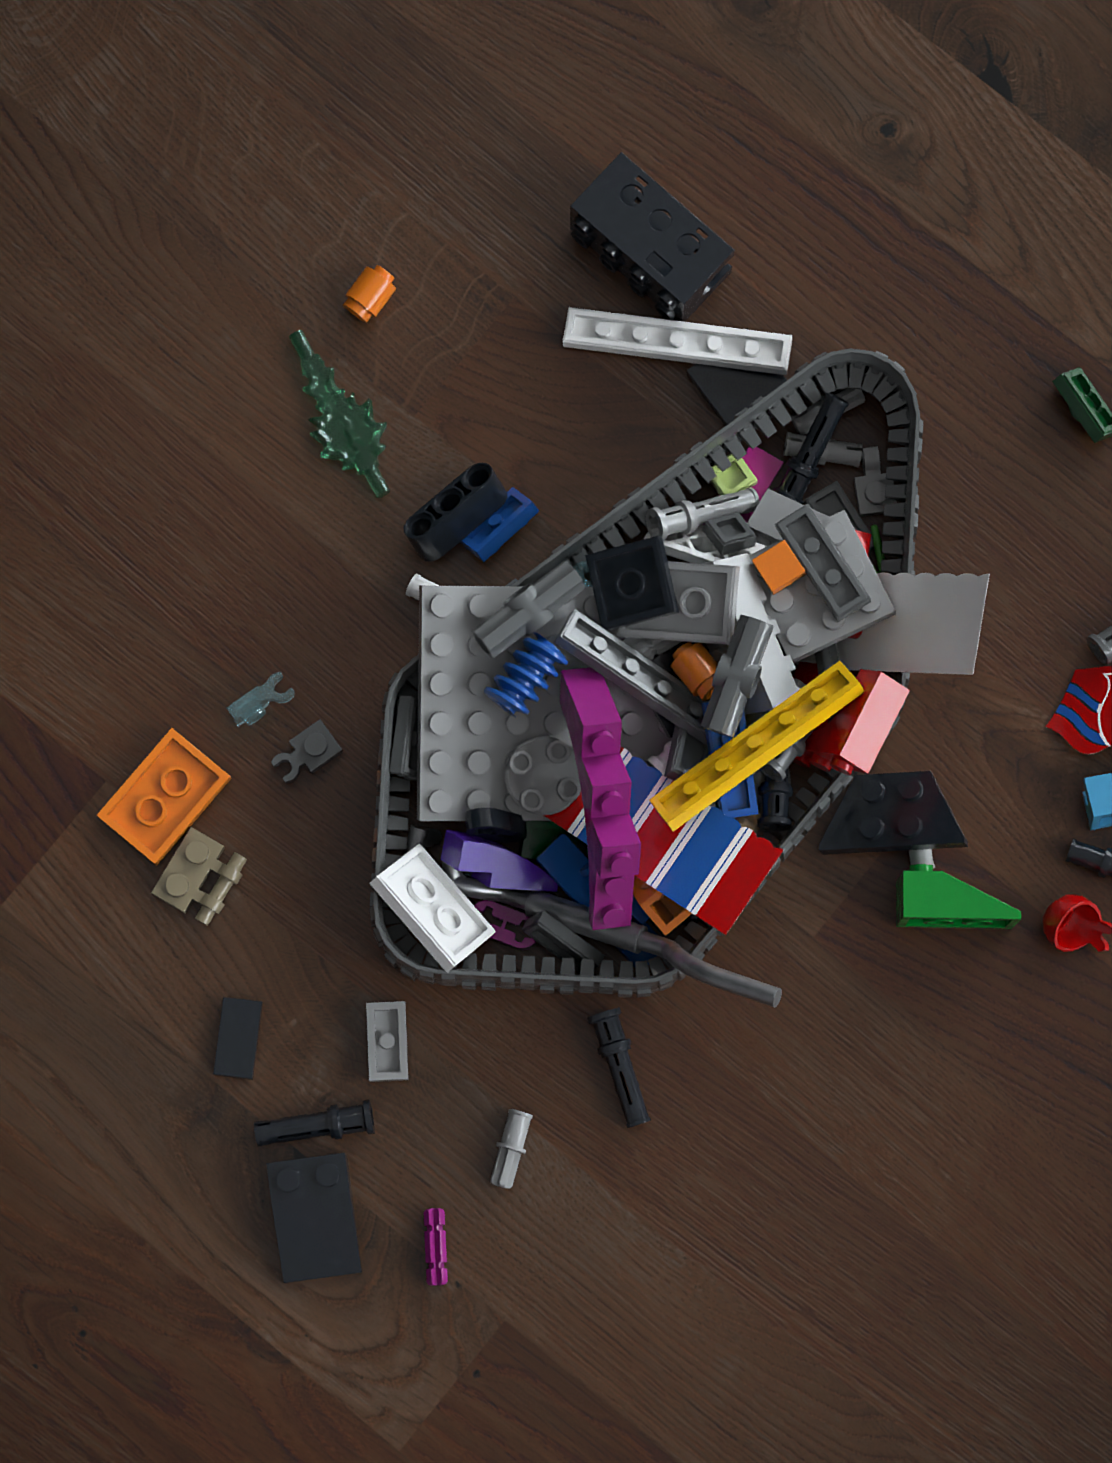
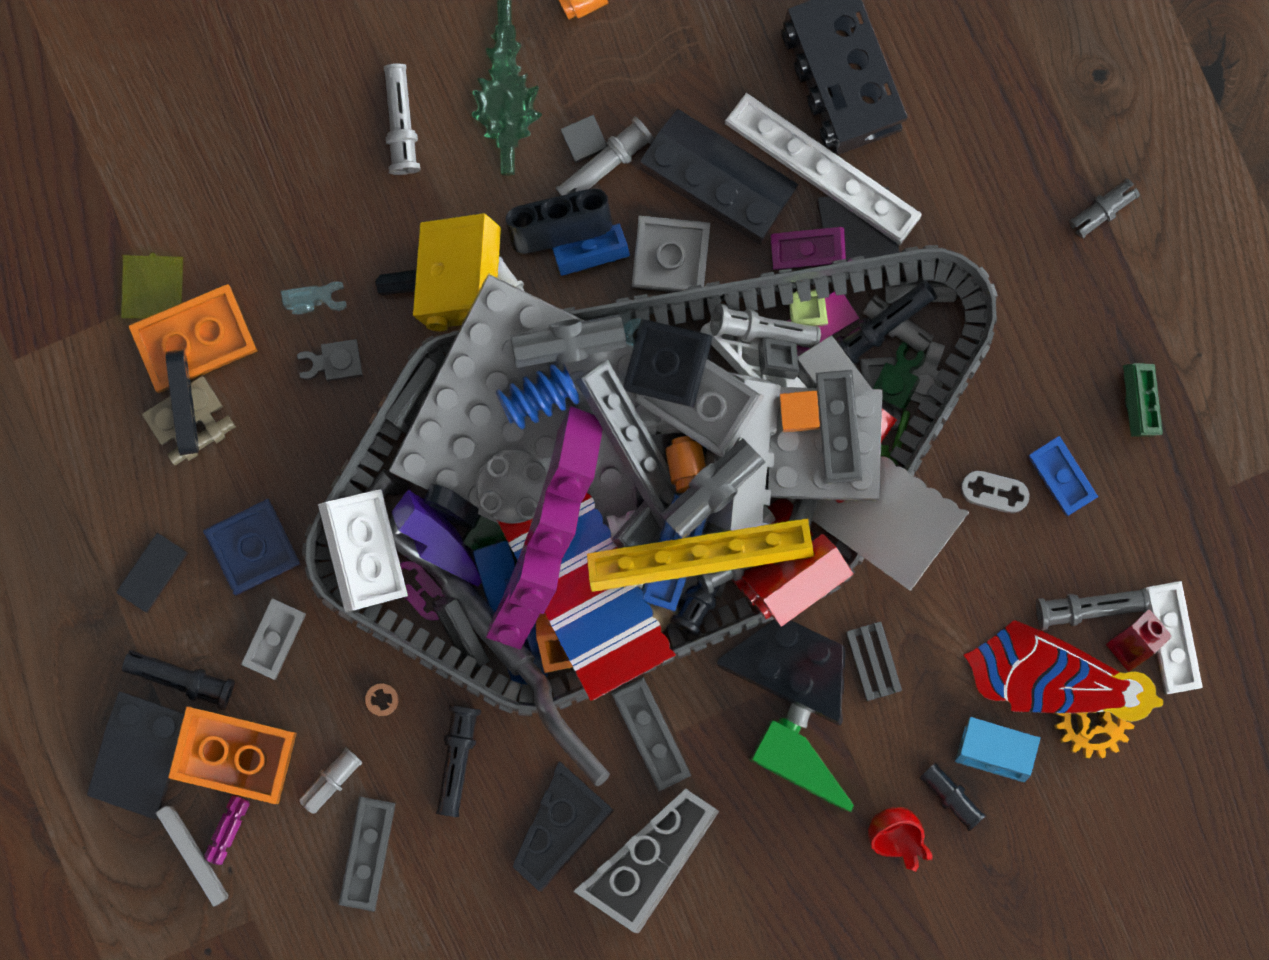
camera: 20 degrees right, 5 degrees up
(96, 767) = (150, 285): none -> clear neon green piece
(186, 859) = (182, 402): none -> black beam
(265, 509) = (399, 138): none -> light grey pin
(321, 965) = (251, 547): none -> dark blue plate
(379, 606) = (450, 269): none -> yellow piece
(406, 1169) = (232, 755): none -> orange slope
(415, 1286) = (192, 855): none -> light grey tile
(438, 426) = (584, 139): none -> dark grey tile
(476, 420) = (618, 150): none -> light grey pin
(520, 1034) = (375, 709): none -> nougat bush
(574, 491) = (670, 254): none -> light grey plate
(581, 1200) = (367, 854): none -> dark grey tile
(582, 398) = (718, 176): none -> black slope
(701, 419) = (807, 248): none -> magenta plate
(753, 1080) = (561, 827): none -> black wing
(792, 949) = (651, 734): none -> dark grey tile
(852, 497) = (898, 381): none -> dark green plate
(853, 1076) = (644, 869): none -> light grey wedge
(957, 247) = (1104, 208): none -> dark grey pin
(975, 763) = (864, 631): none -> dark grey tile
(992, 551) = (992, 500): none -> light grey beam
(1050, 512) = (1062, 476): none -> blue plate

